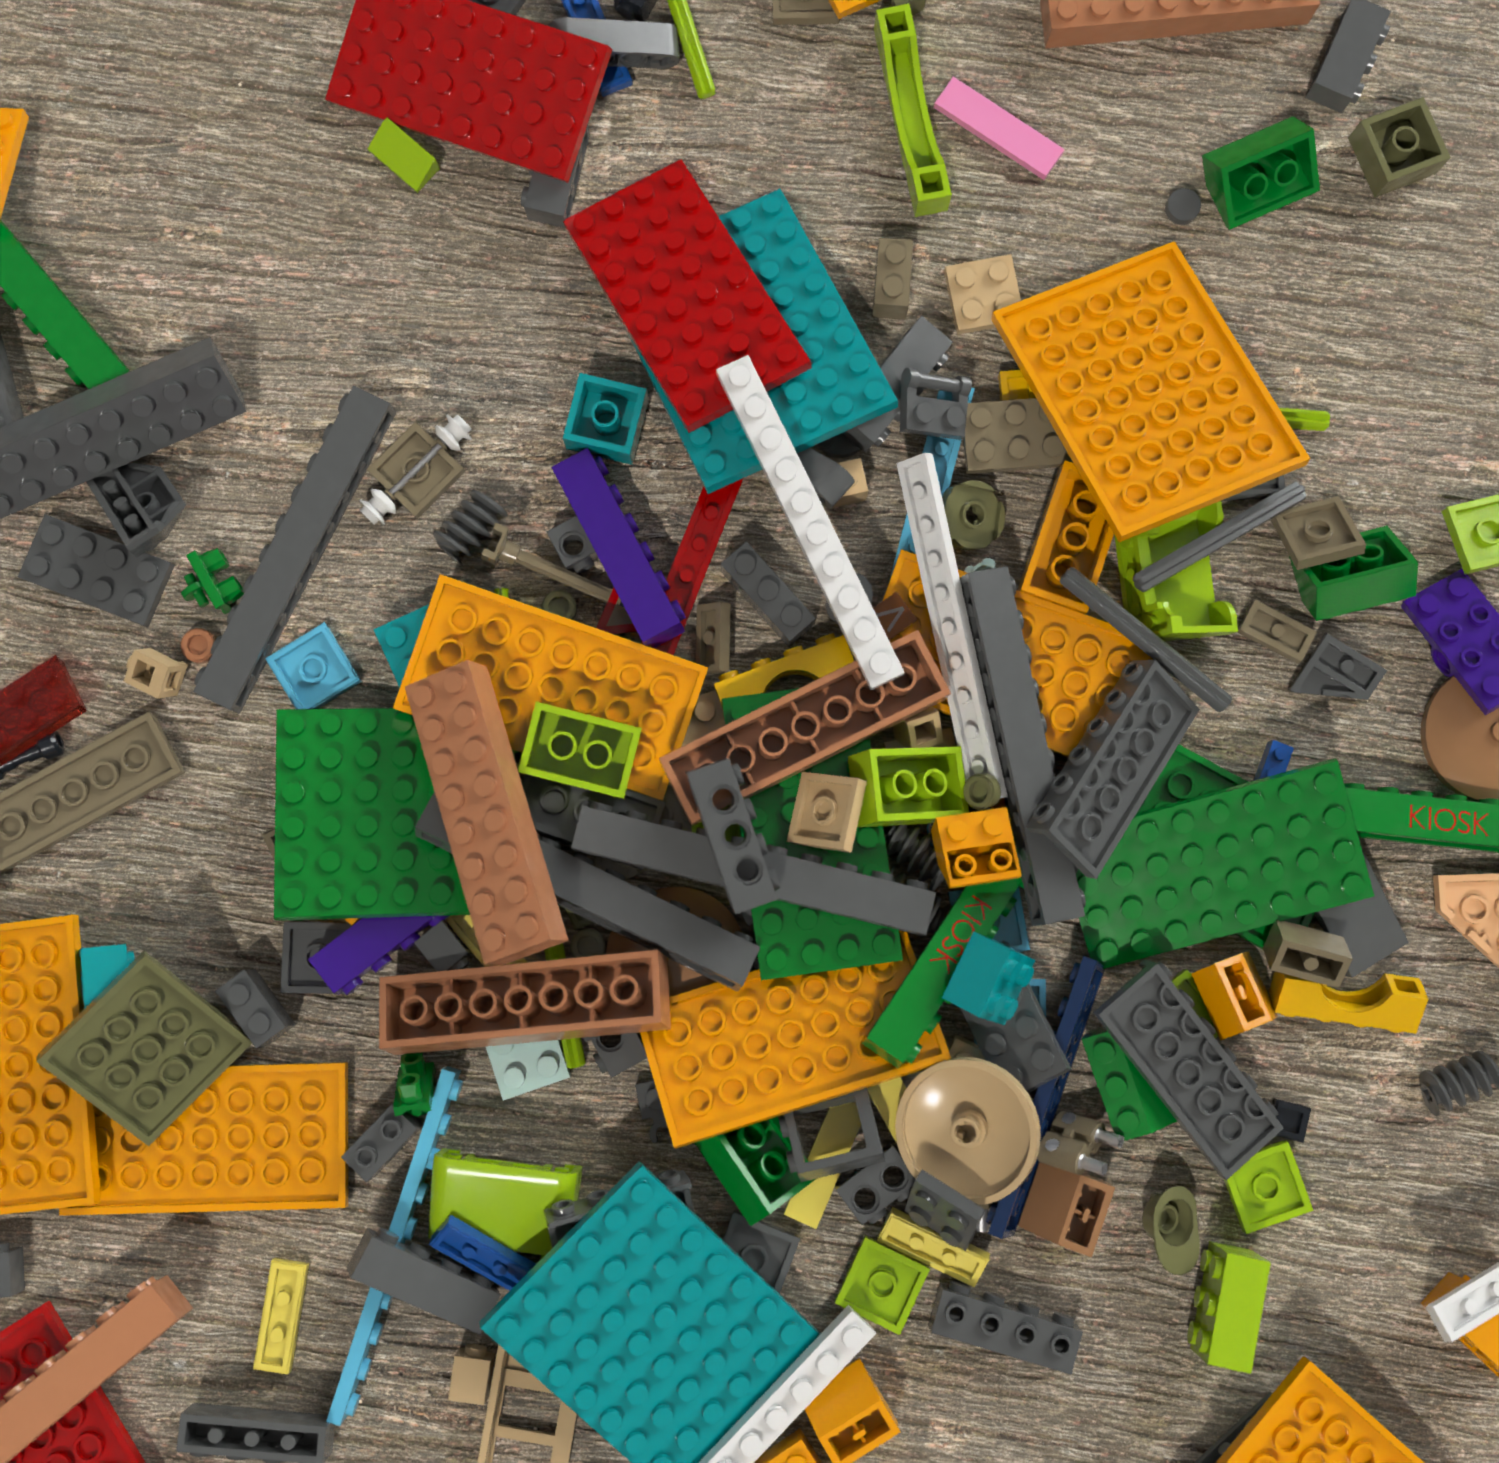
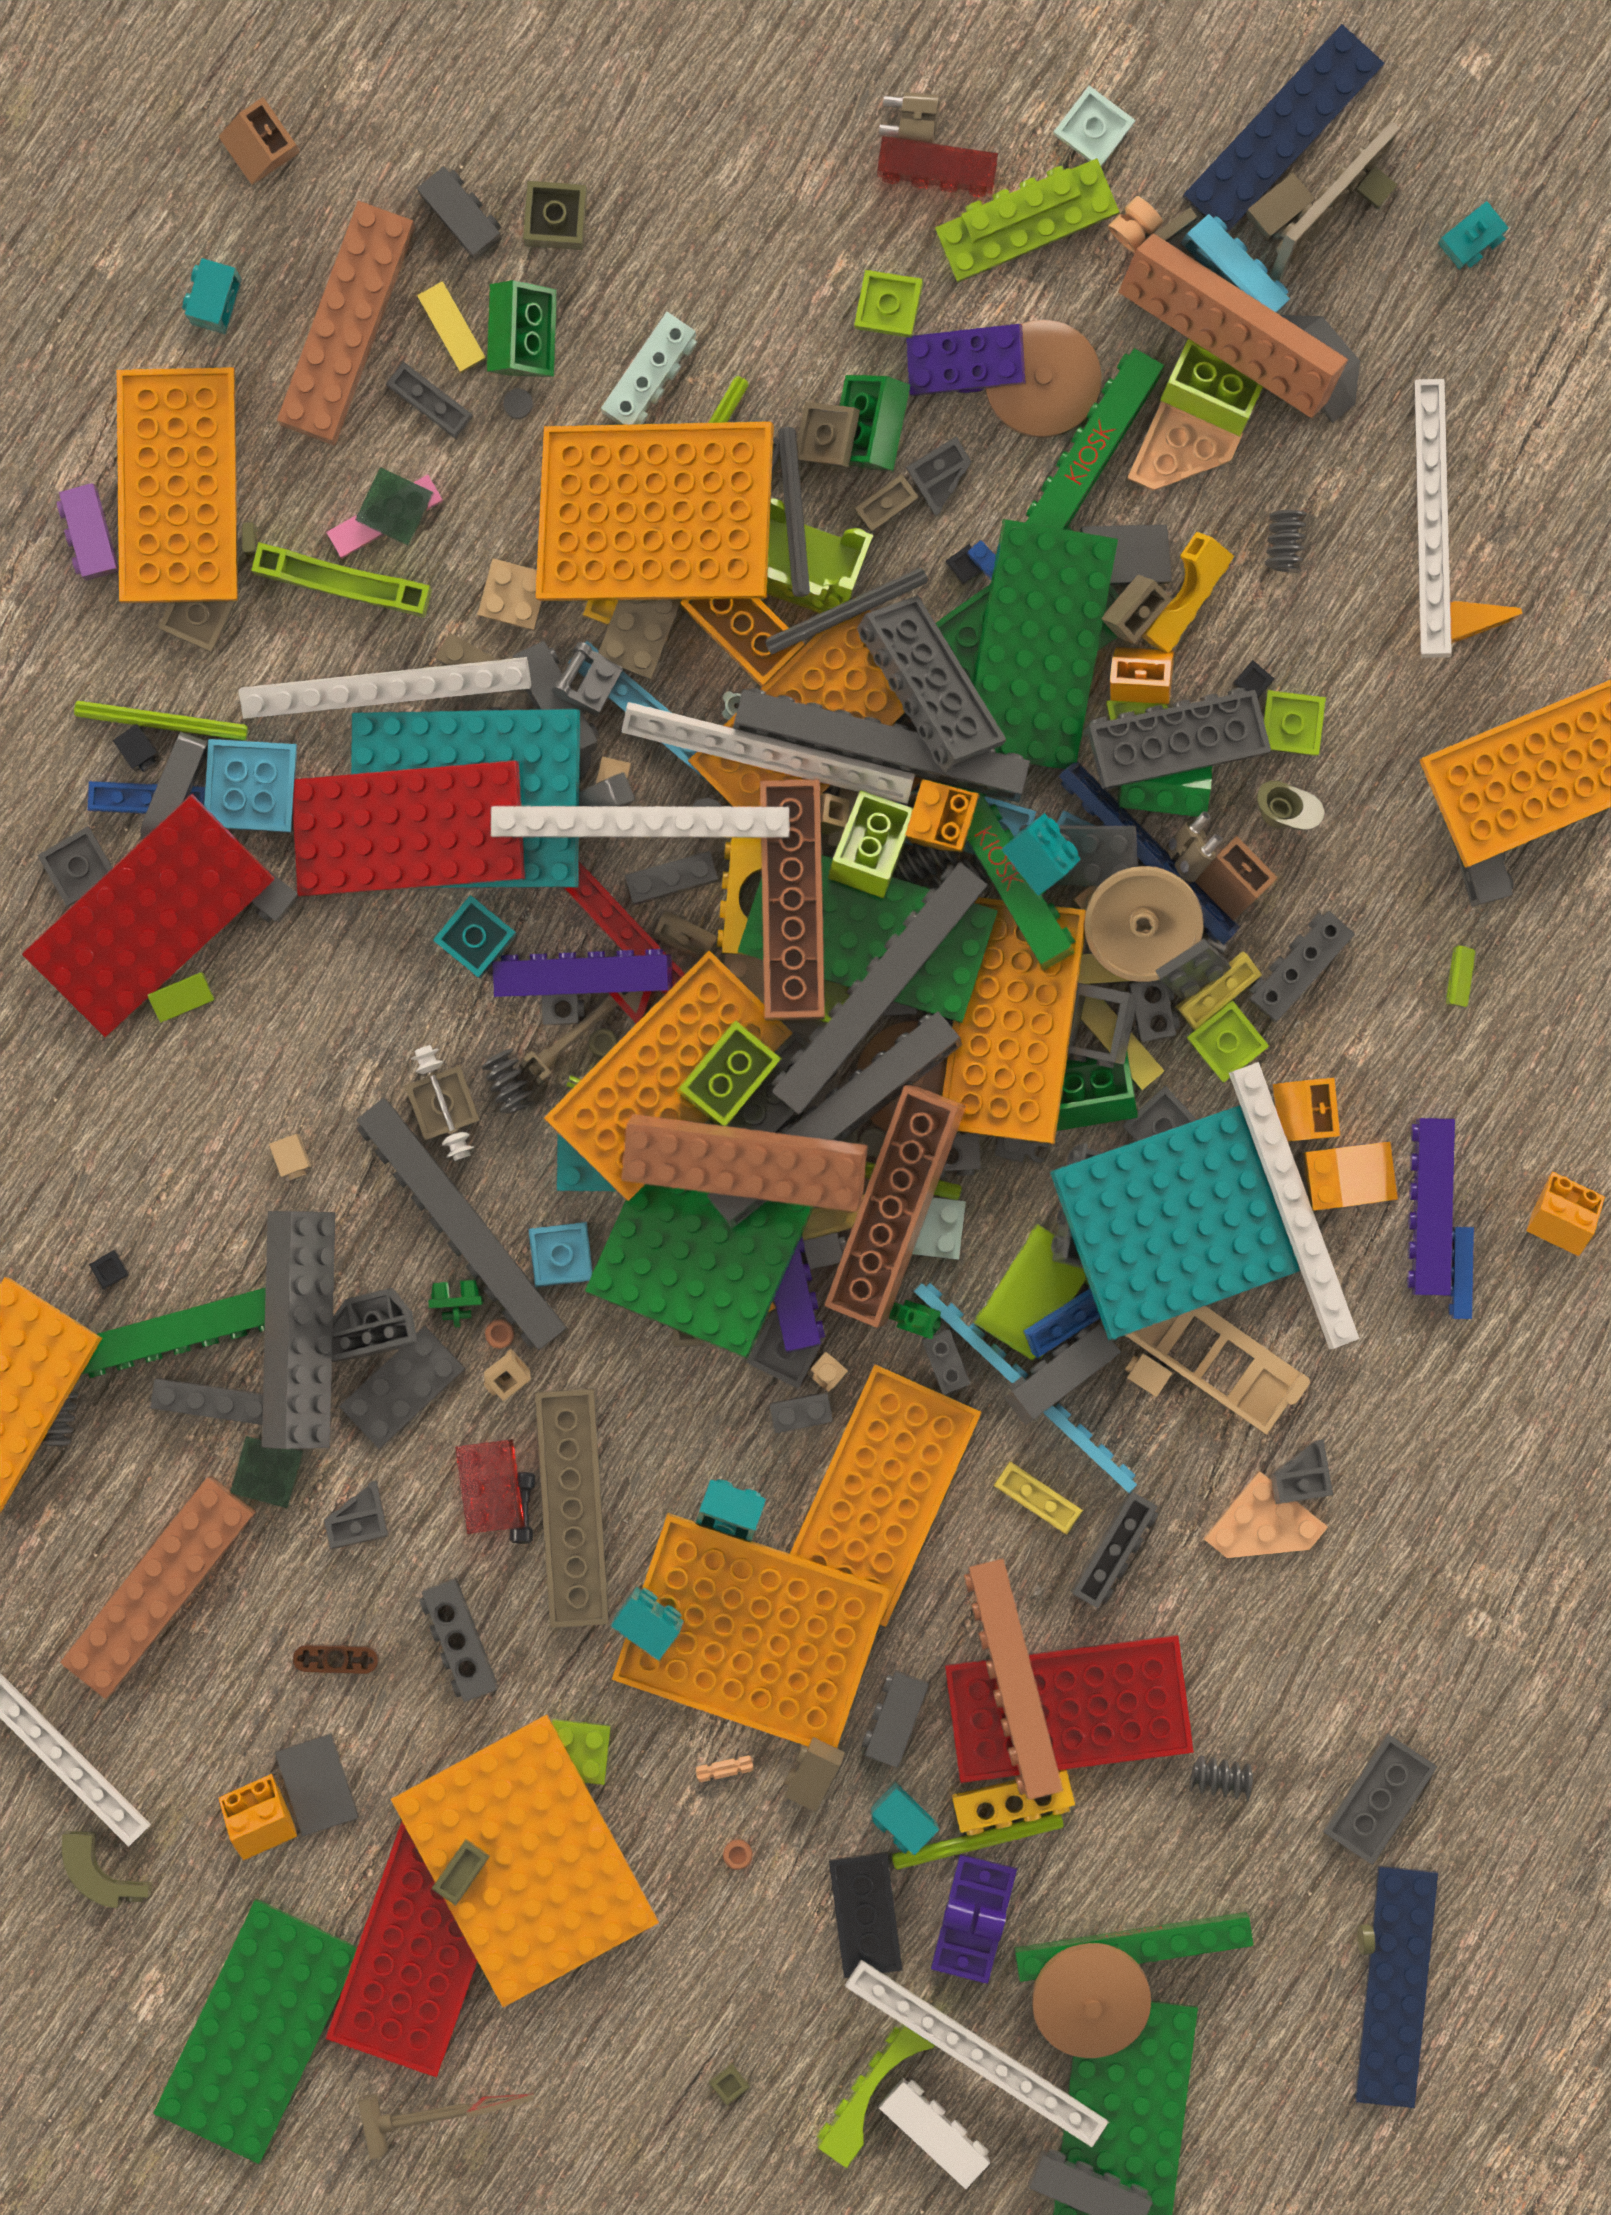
camera: 65 degrees left, 5 degrees up
(86, 216) = (109, 1269): none -> black tile
(144, 1048) = (795, 1498): olive plate -> none
(286, 340) = (290, 1156): none -> tan brick
(314, 1015) = (827, 1371): none -> tan brick
(655, 121) = (251, 784): none -> medium azure plate
(742, 893) = (801, 993): dark grey brick -> none
(823, 206) = (385, 687): none -> white plate
(826, 811) = (862, 913): tan plate -> none
(894, 615) = (737, 792): reddish brown tile -> none
(982, 791) = (901, 791): olive tile -> none
(985, 505) = (688, 676): olive plate -> none
(1014, 127) = (394, 506): none -> clear green plate
(1140, 117) = (429, 400): none -> dark grey tile
(1226, 103) = (451, 327): none -> light yellow tile
(1229, 1306) = (1361, 795): lime brick -> none
(1251, 745) = (963, 566): none -> black tile
(1290, 320) = (649, 371): none -> light aqua brick

